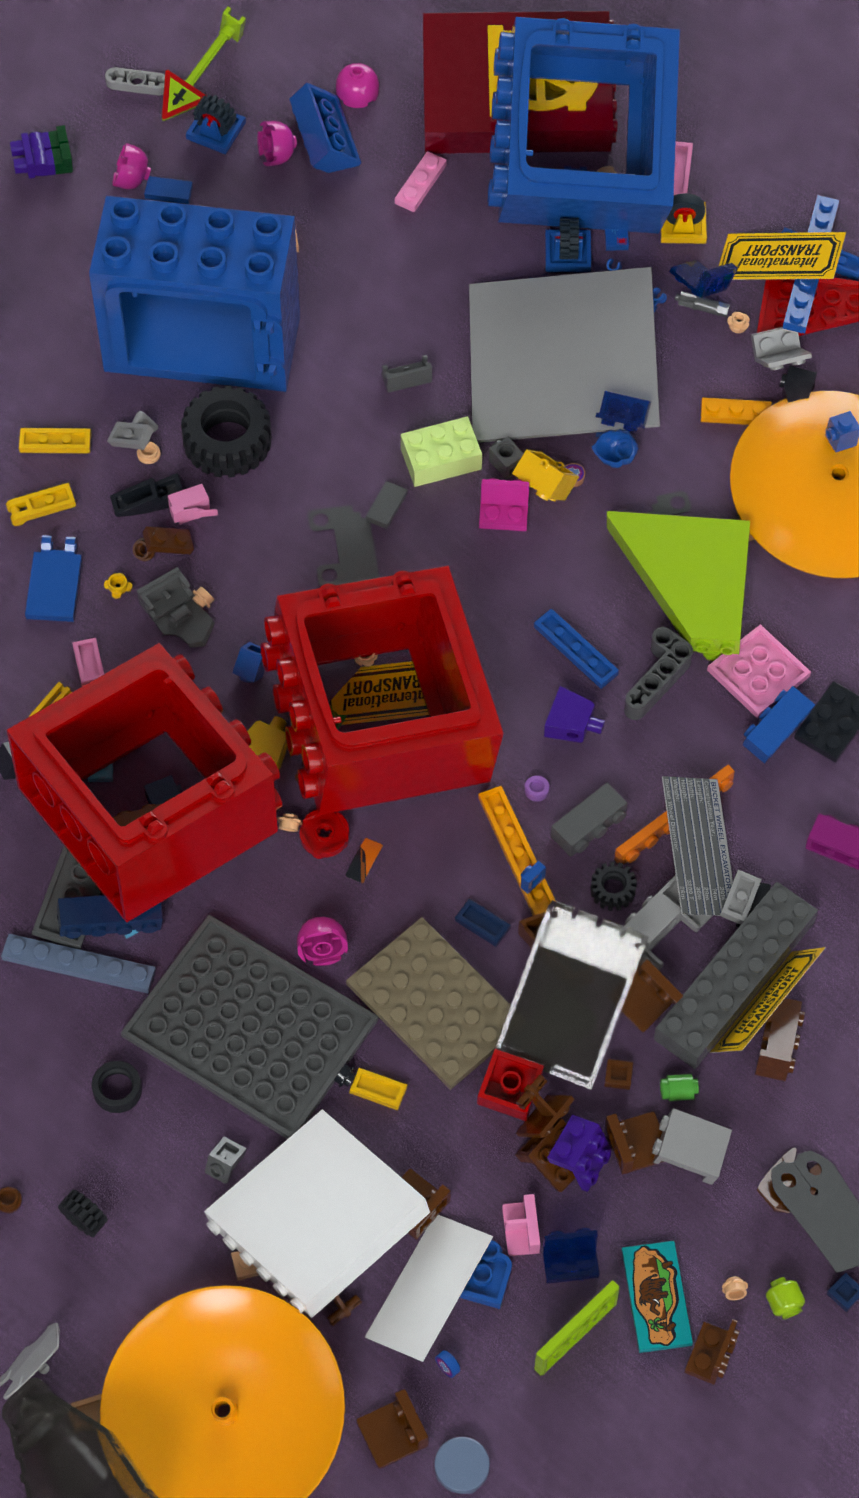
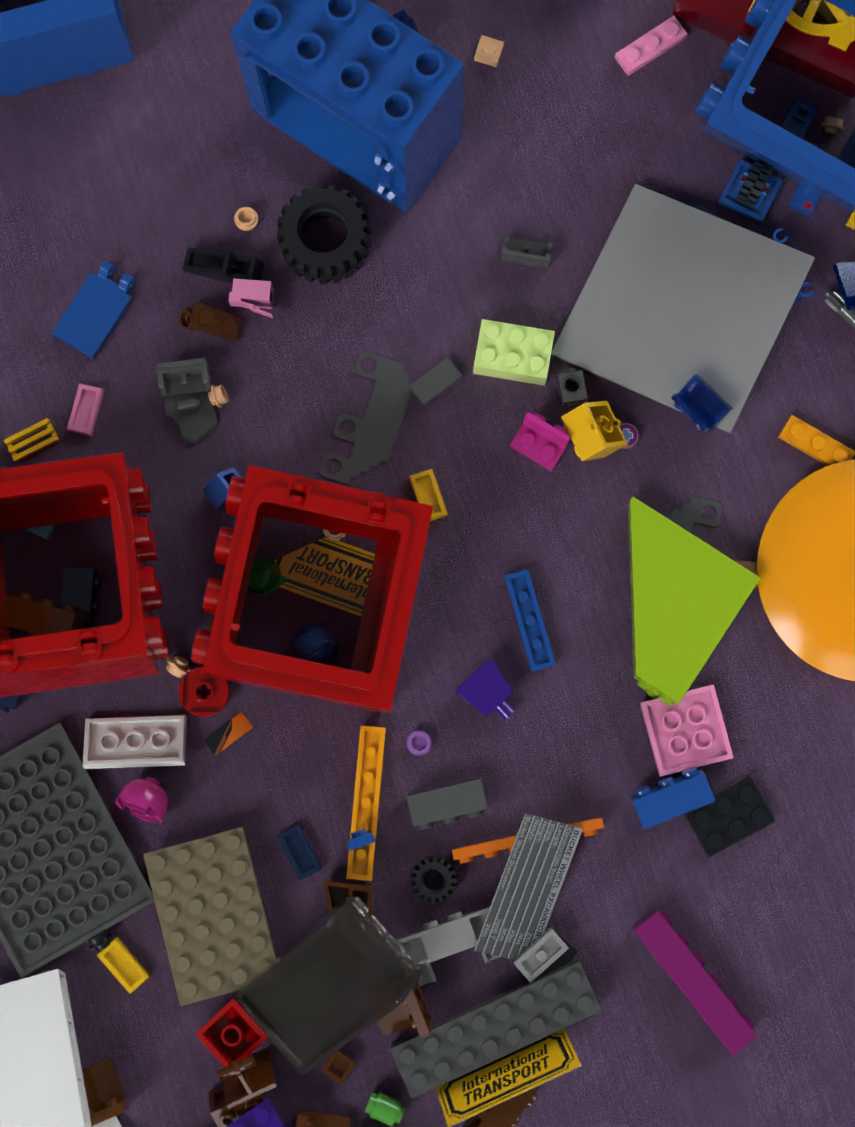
camera: 30 degrees right, 20 degrees up
(40, 504) = (122, 224): yellow plate -> none
(55, 440) = (167, 163): yellow plate -> none
(118, 579) = (145, 338): yellow plate -> none
(134, 434) = (236, 192): light grey plate -> none
(269, 739) = (191, 577): yellow torso -> none
(285, 900) = (135, 741): none -> white tile
(615, 448) = (677, 431): blue hair -> none
(655, 677) = (586, 688): dark grey beam -> none

